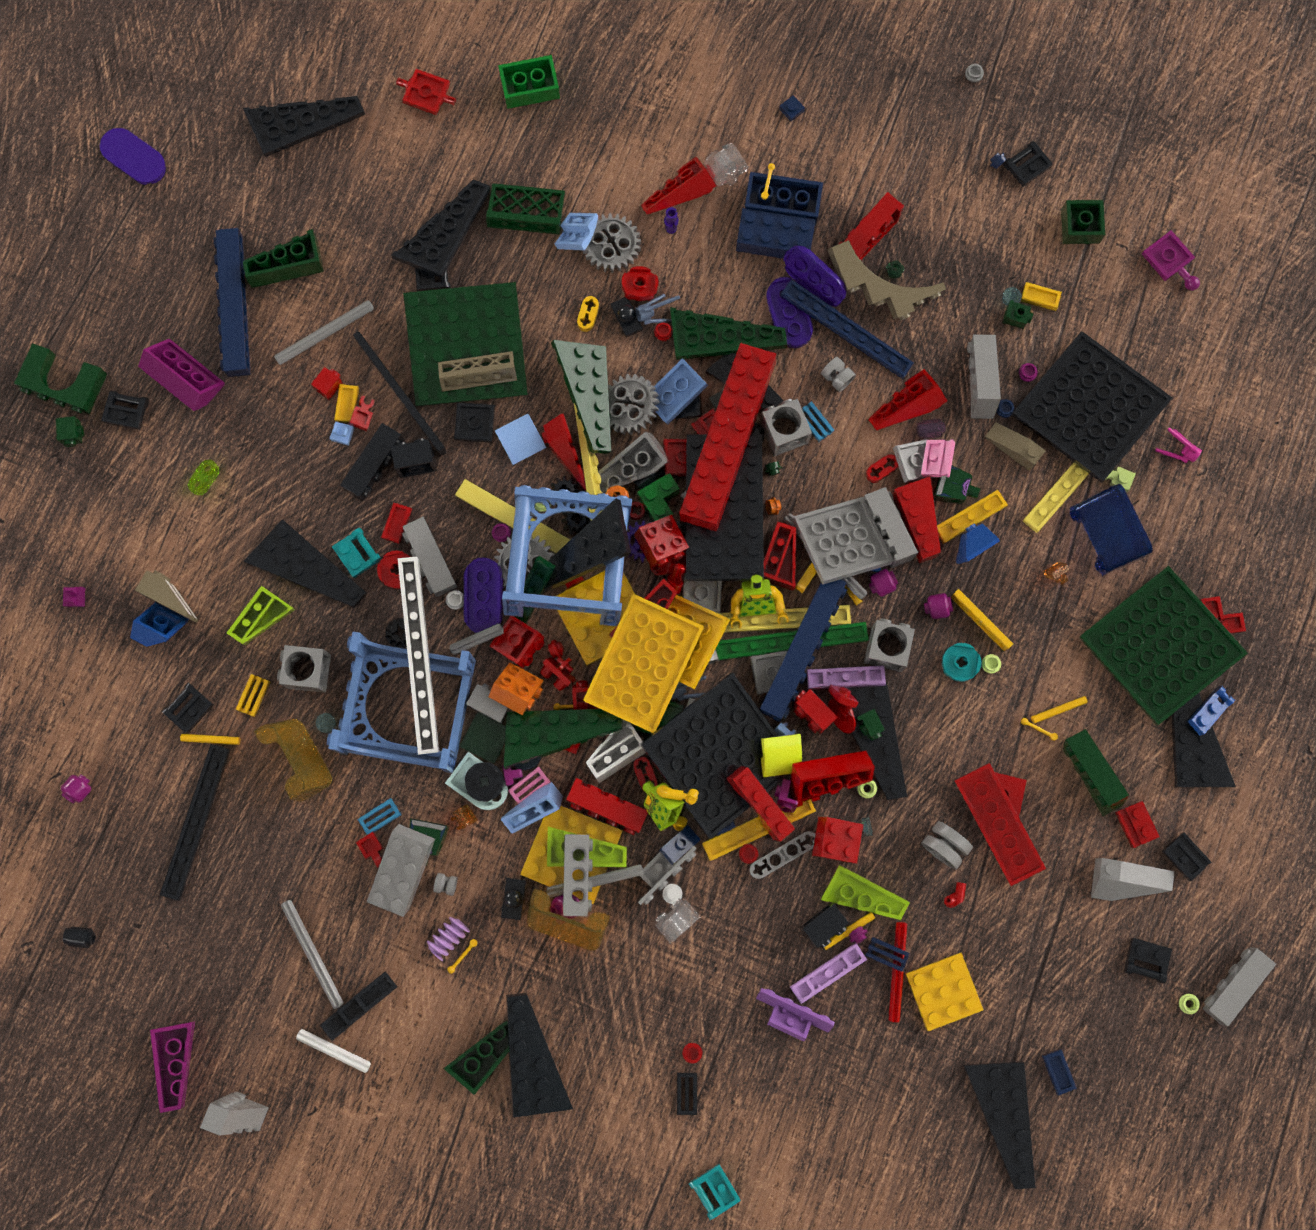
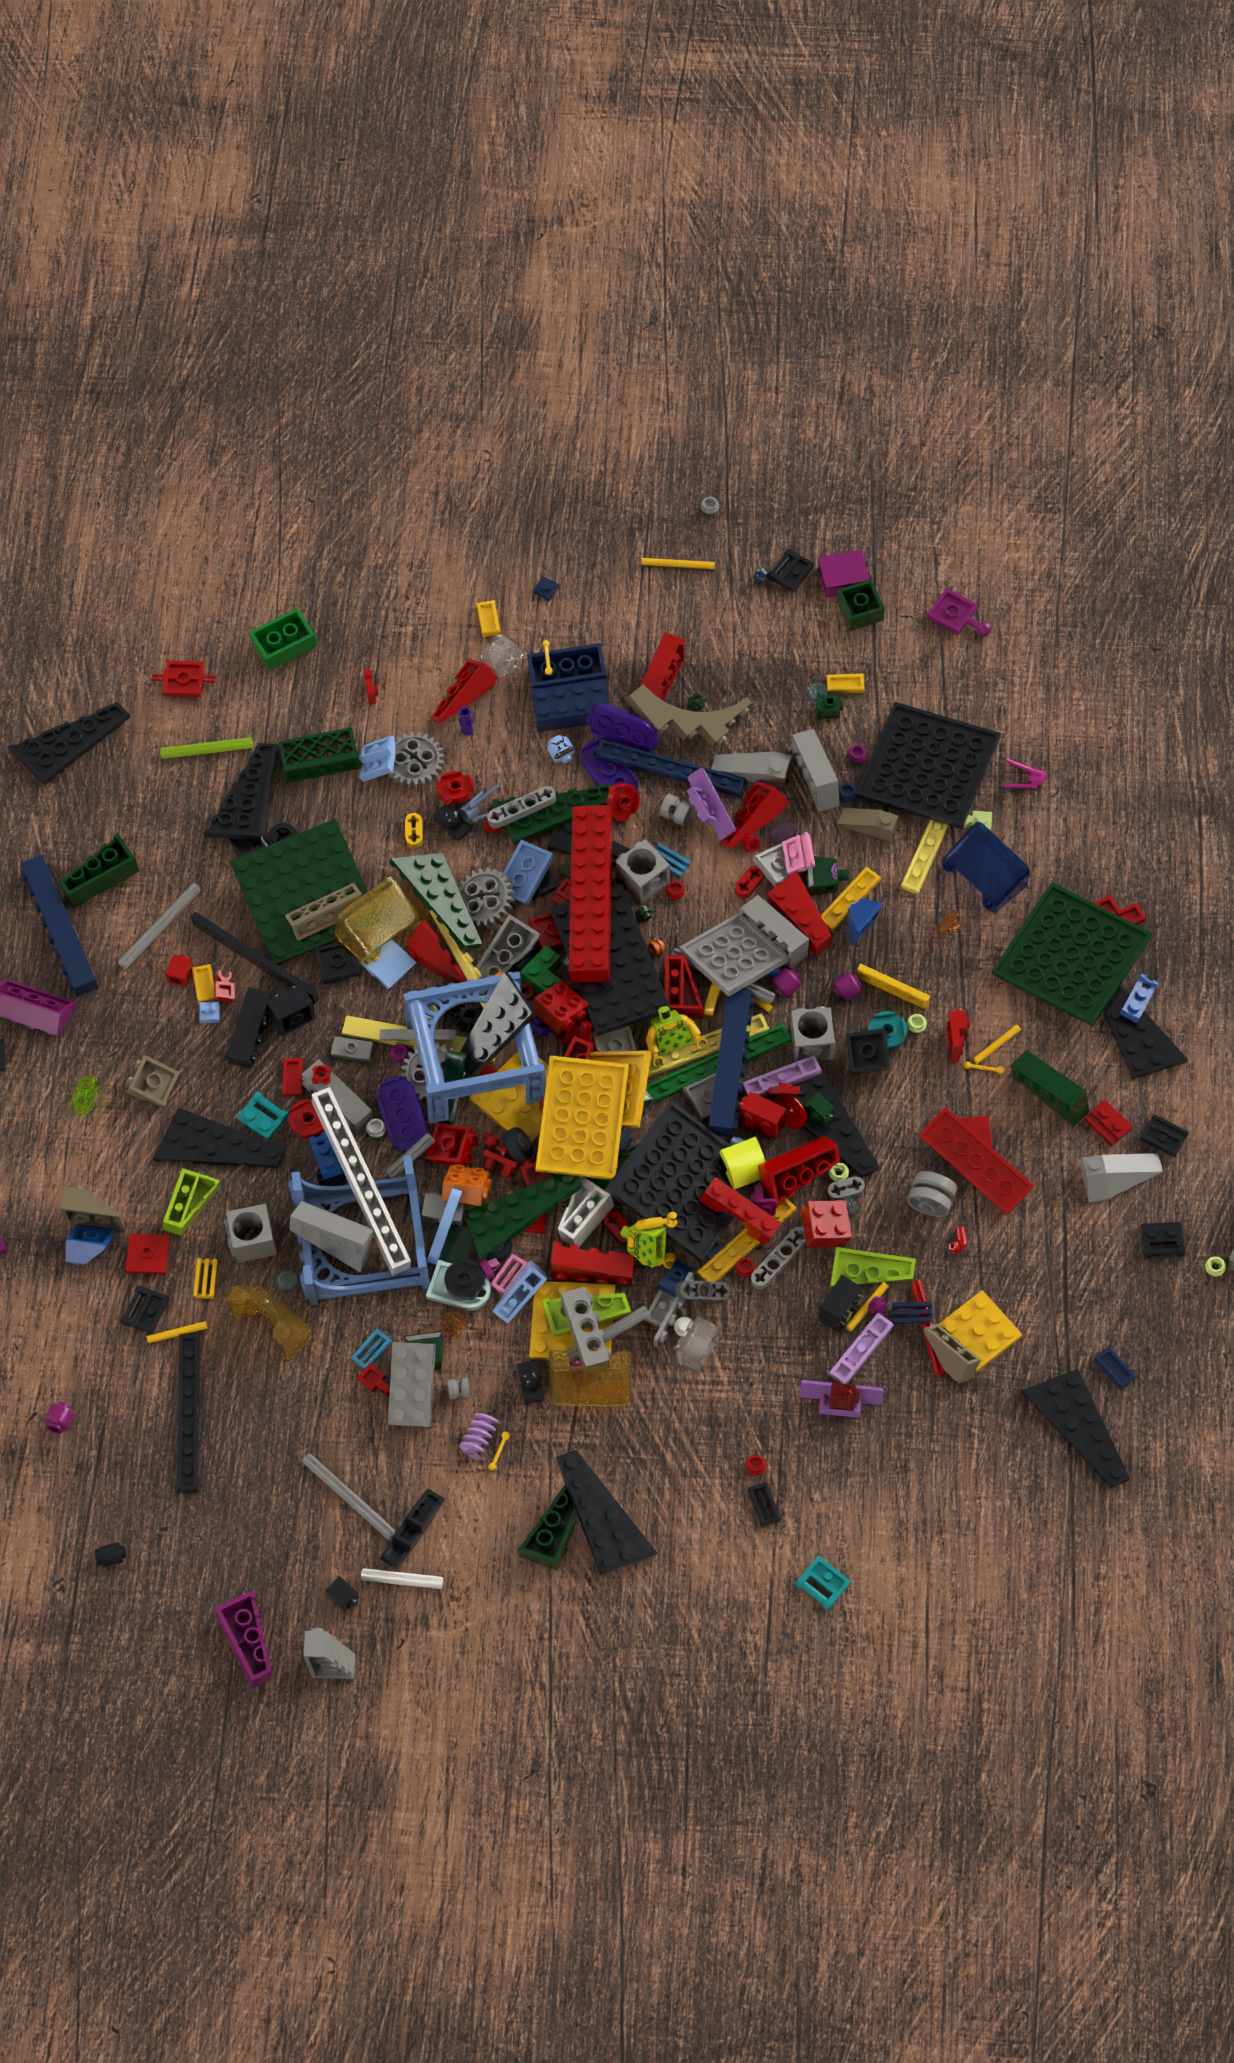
camera: 15 degrees left, 15 degrees down
(208, 653) = (147, 1254): none -> red plate
(265, 485) = (151, 1081): none -> dark tan plate
(273, 1050) = (342, 1594): none -> black brick
(376, 698) = (333, 1234): none -> light grey wedge
(396, 625) = (325, 1156): none -> blue plate
(419, 529) = (321, 1069): none -> red plate
(425, 168) = (206, 748): none -> lime axle
(459, 513) = (352, 1049): none -> light grey plate
(469, 273) = (282, 829): none -> black gear
(482, 724) = (444, 1226): none -> light blue beam
(508, 518) = (408, 1035): none -> light grey beam
(522, 396) = (376, 920): none -> clear yellow windscreen
(578, 664) = (518, 1144): none -> black wheel
(595, 160) = (372, 690): none -> red plate
(694, 328) = (523, 810): none -> light grey beam
(694, 861) = (695, 1295): none -> dark grey beam
(728, 121) = (488, 618): none -> yellow tile
(750, 277) = (560, 749): none -> light blue head
(784, 356) = (619, 792): none -> red plate
(790, 1021) = (843, 1396): none -> clear red brick
(810, 454) = (675, 890): none -> red plate
(868, 812) = (845, 1185): none -> light grey beam
(870, 379) = (708, 804): none -> medium lavender bracket
(897, 430) = (751, 842): none -> red plate
(910, 1009) = (953, 1356): none -> dark tan slope
(924, 122) = (678, 563): none -> yellow bar
(934, 356) = (764, 767): none -> light grey wedge
(936, 681) = (868, 1051): none -> black brick
(1026, 686) = (957, 1030): none -> red plate
(1077, 181) = (842, 571): none -> magenta brick

